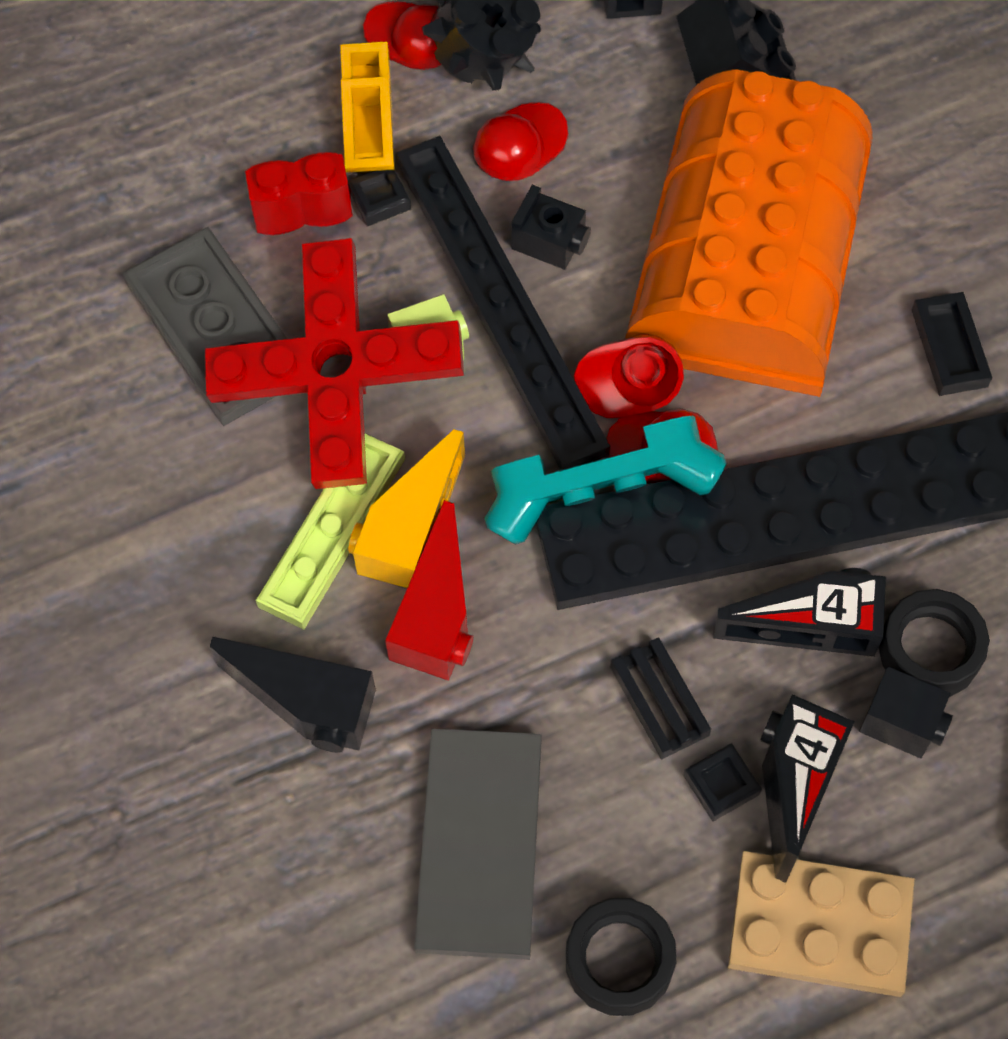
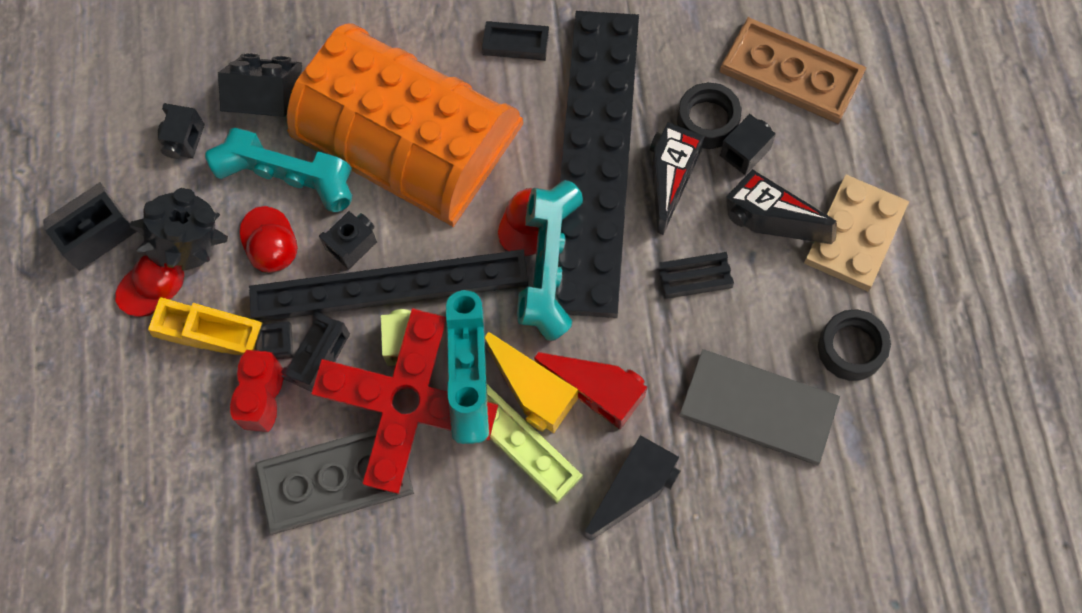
camera: 70 degrees left, 5 degrees up
(349, 421) = (467, 368): none -> teal plate
(382, 249) = (321, 342): none -> black hinge
(630, 376) = (478, 221): red cap -> none
(633, 170) = (244, 151): none -> teal plate
(722, 782) = (758, 257): black tile -> none

